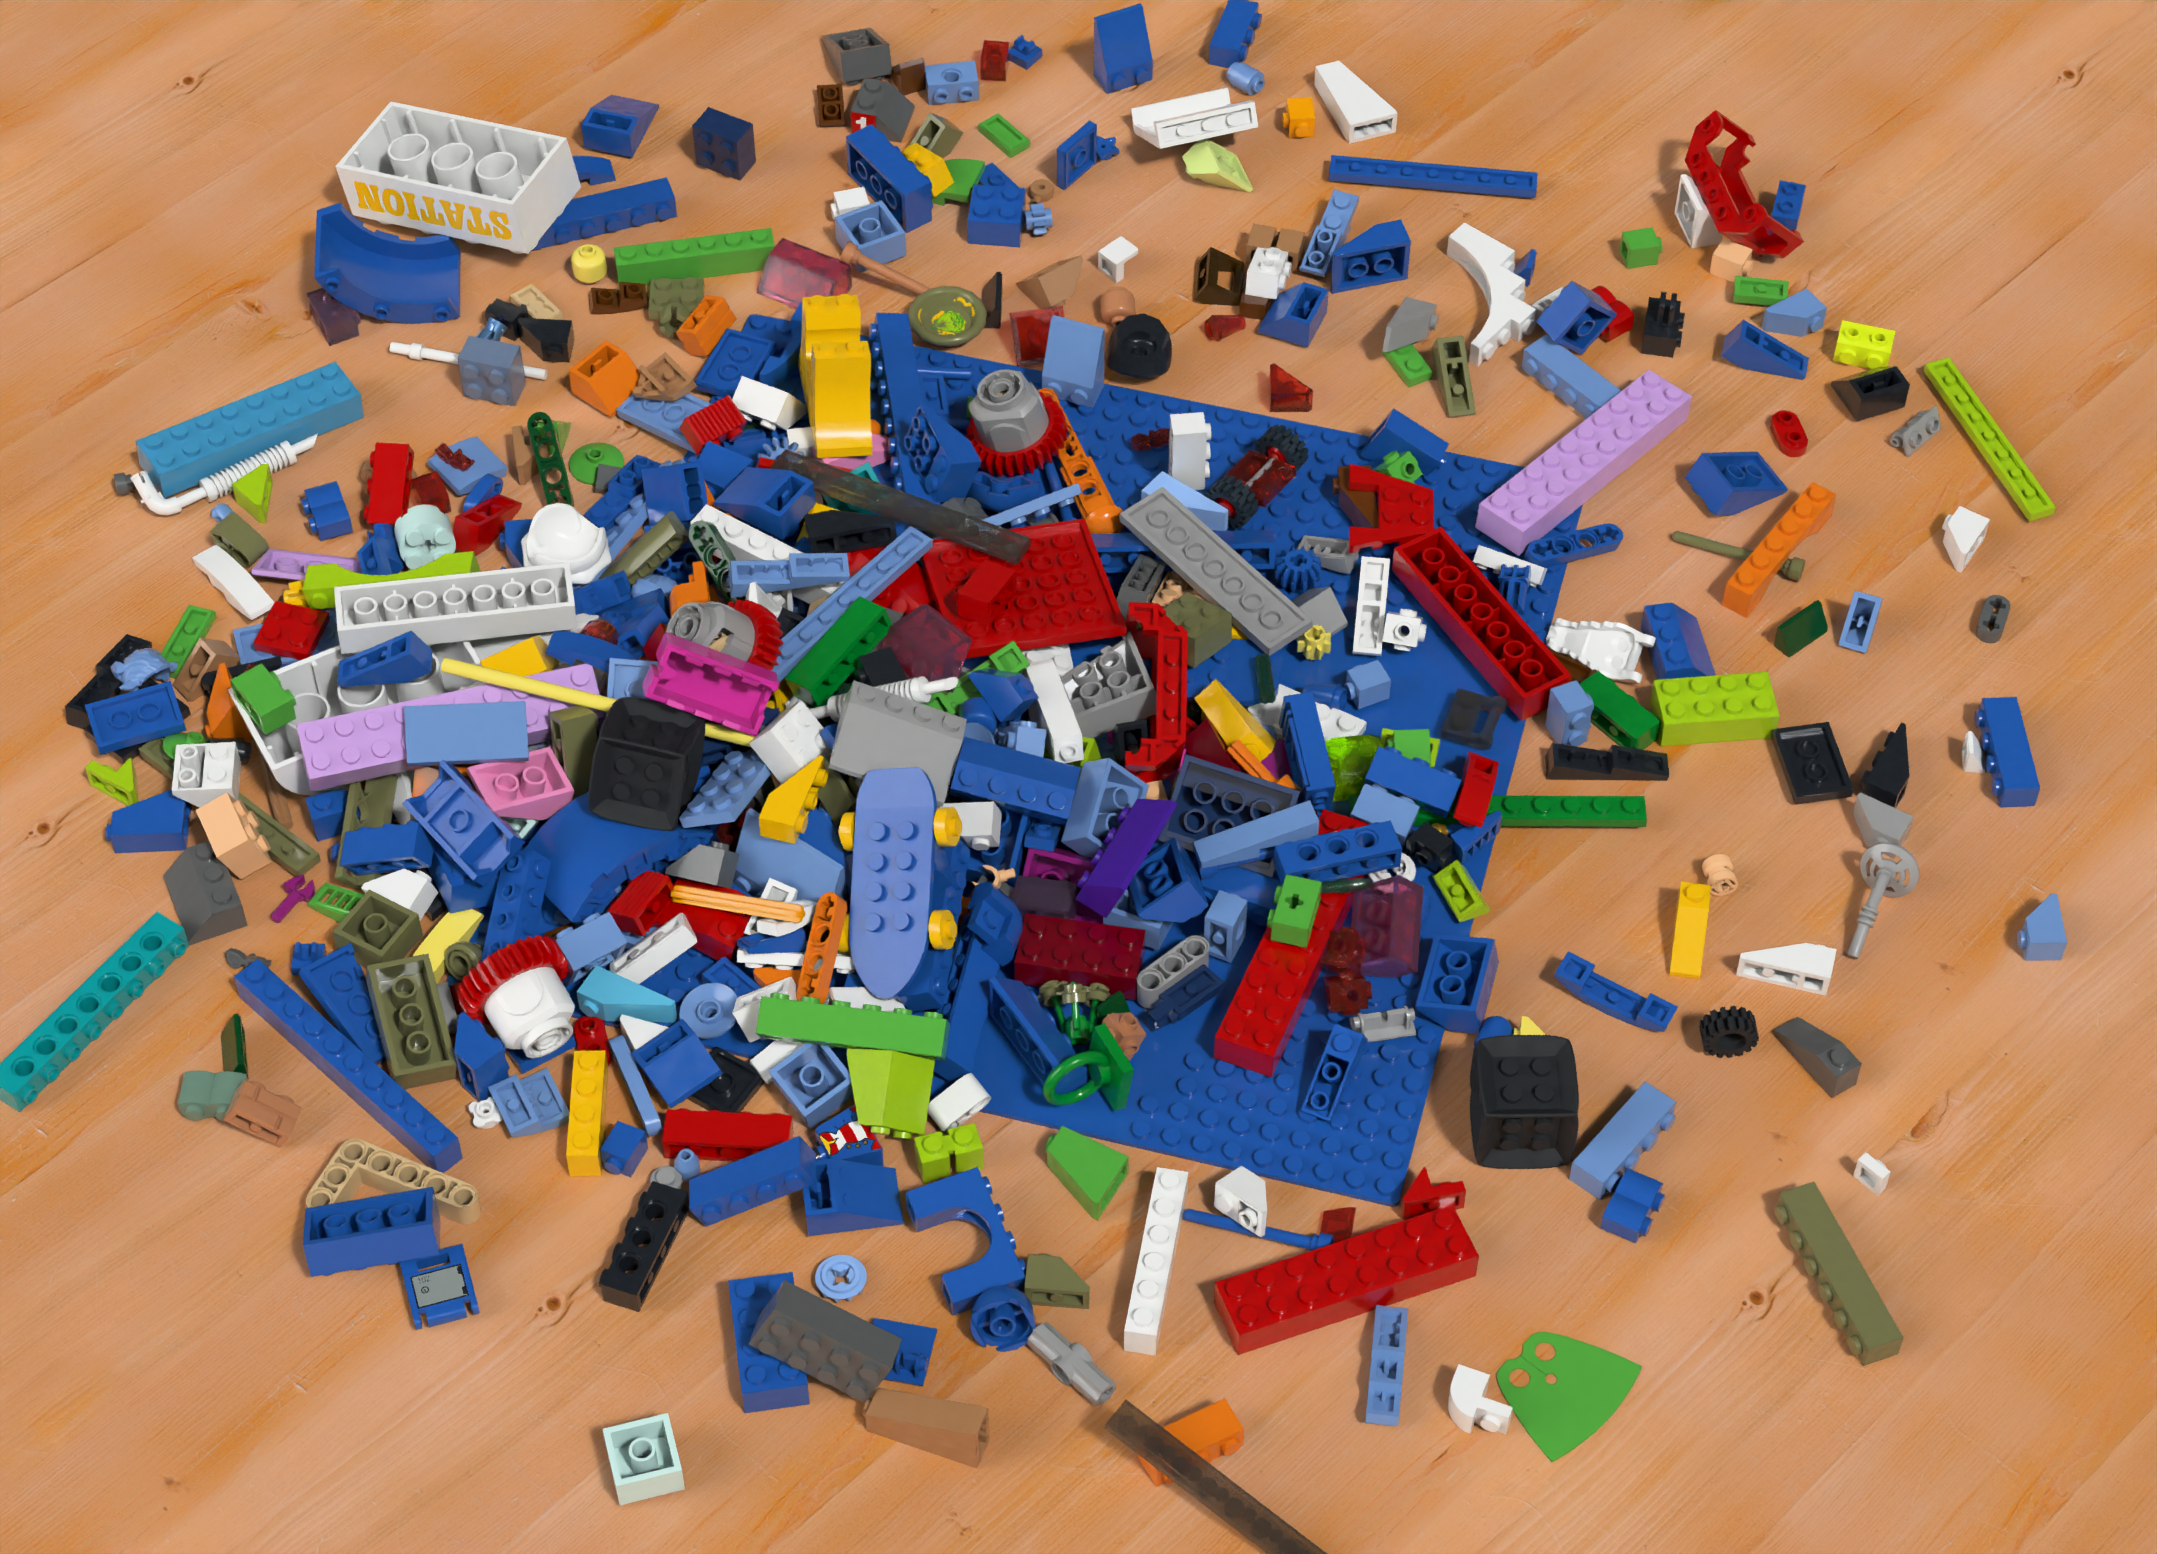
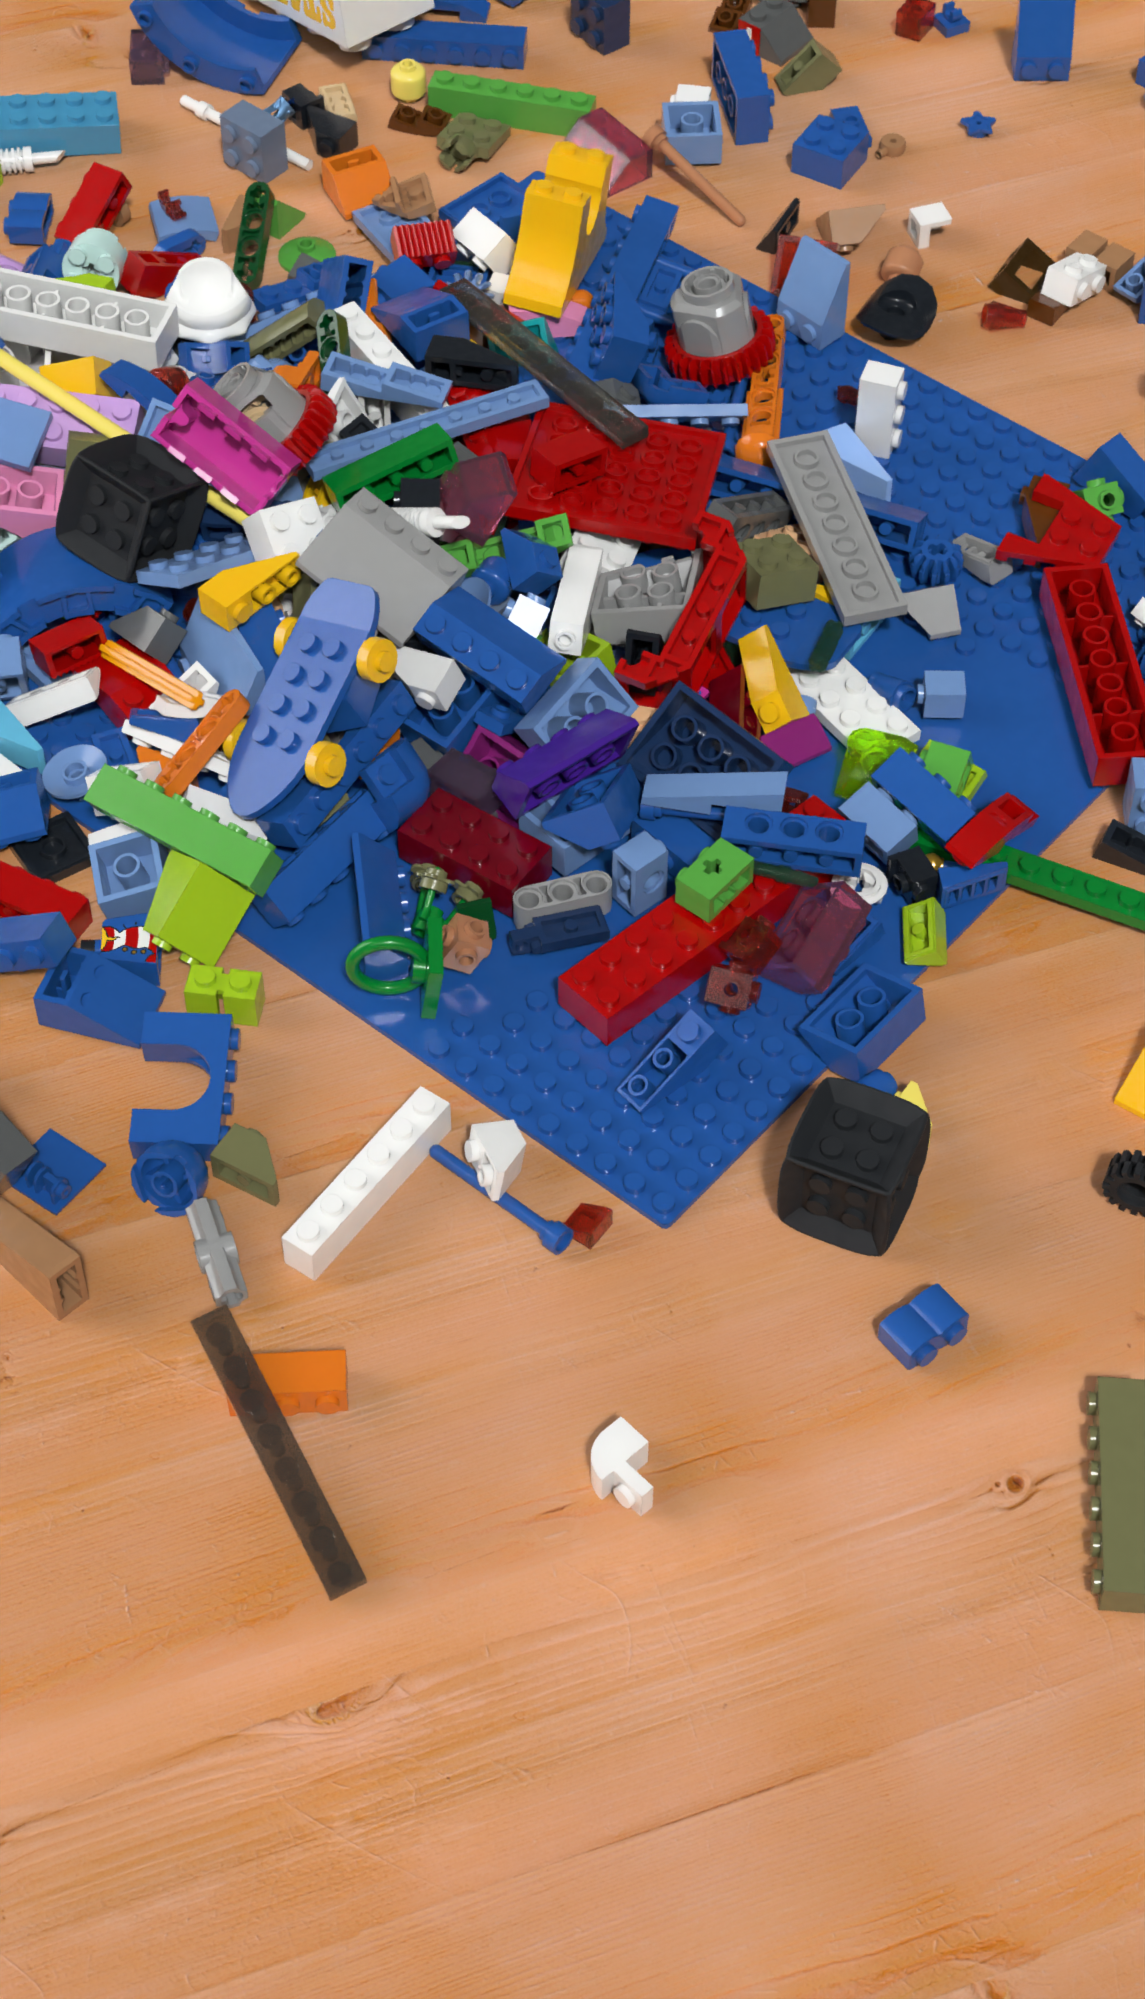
camera: 25 degrees right, 0 degrees up
(431, 491) = (132, 230): clear red brick -> none
(706, 325) = (482, 162): orange brick -> none
(839, 1266) = (52, 1066): light blue gear -> none
(931, 166) = (785, 88): yellow brick -> none
(947, 316) = (722, 224): olive piece -> none
(951, 82) = (859, 25): medium blue brick -> none
(958, 1103) = (265, 948): white beam -> none
(965, 175) = (806, 107): bright green slope -> none
(1000, 875) = (430, 742): light nougat piece -> none
(1004, 135) = (885, 87): bright green tile -> none
(1038, 219) = (870, 166): medium blue gear -> none
(1076, 155) = (941, 118): blue plate -> none
(1086, 1169) = (357, 1065): bright green slope -> none
(1192, 118) = (1080, 116): white panel -> none
(1216, 166) = (1083, 170): yellowish green slope -> none
(1255, 768) = (766, 733): orange piece -> none
(1259, 475) = (946, 458): plate -> none
(1287, 392) = (1030, 396): clear red slope -> none
(1296, 314) = (1085, 328): blue slope -> none
(1307, 750) = (827, 732): blue door -> none
(1314, 643) = (910, 635): light yellow gear -> none
(1345, 1279) = (557, 1280): red brick -> none
(1371, 606) = (994, 621): white slope -> none
(1385, 1025) = (760, 1037): light grey hinge -> none
(1386, 1365) = (549, 1389): medium blue slope -> none
(1394, 634) = (1012, 652): white brick -> none
(1424, 1198) = (694, 1231): red slope -> none
(1464, 716) = (1034, 760): clear smoke plate -> none
(1584, 1397) = (761, 1506): bright green piece -> none
(1613, 998) = (1030, 1101): blue slope -> none
(1623, 1141) = (954, 1253): medium blue brick -> none

